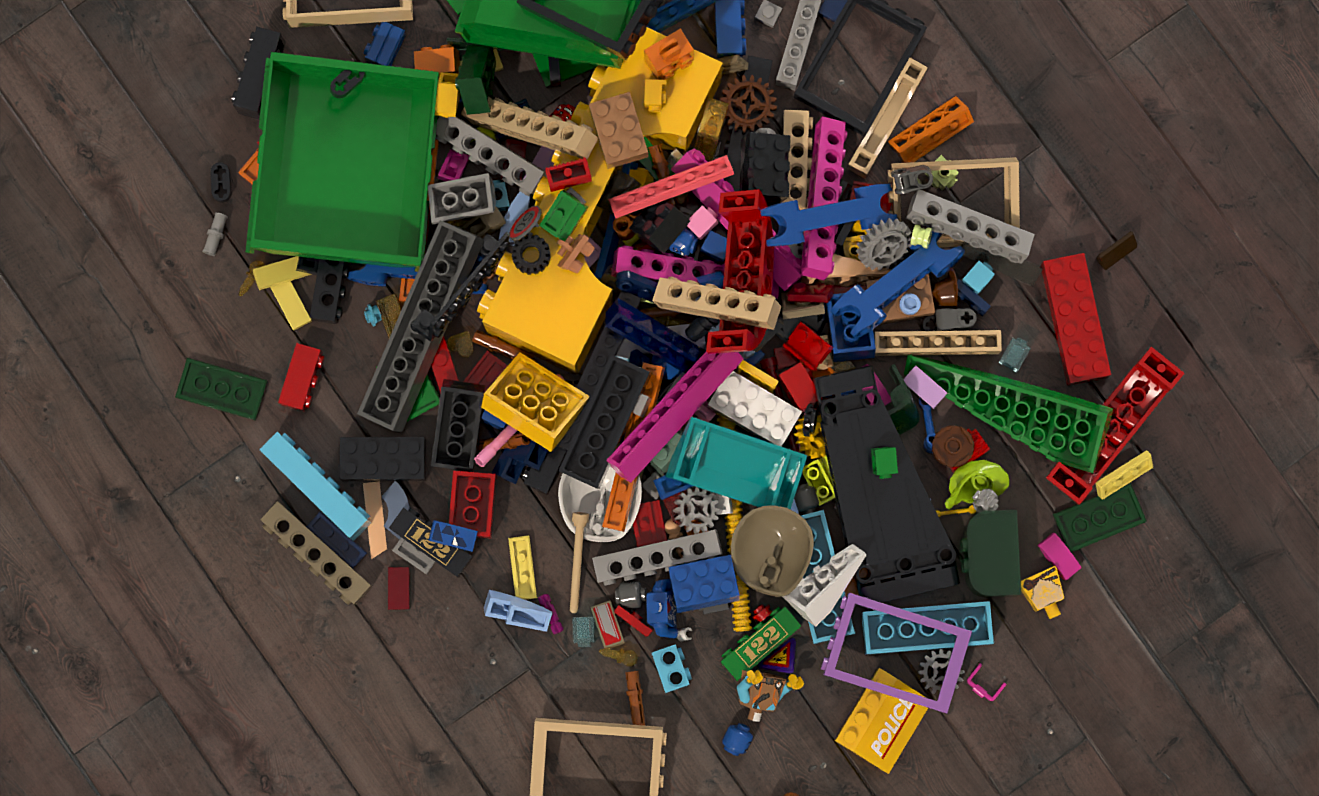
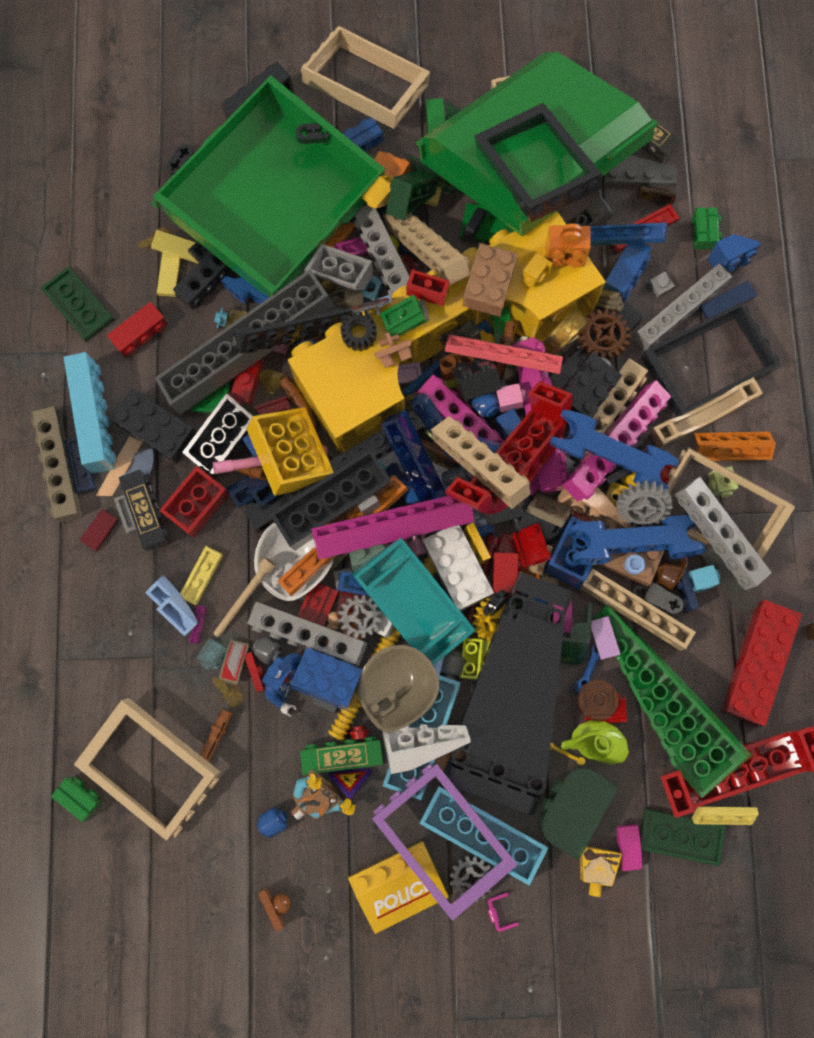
camera: 35 degrees right, 5 degrees down
(215, 234) = (148, 193): light grey pin -> none
(452, 535) = (160, 514): slope -> none
(666, 670) = (253, 728): medium azure brick -> none
(810, 293) = (559, 505): dark red plate -> none
(884, 461) = (534, 675): green brick -> none
(910, 179) = (698, 465): dark grey piece -> none
(921, 236) = (678, 516): yellowish green wheel -> none
(985, 500) = (597, 761): light grey gear -> none
(1015, 354) = (694, 659): clear light blue brick -> none

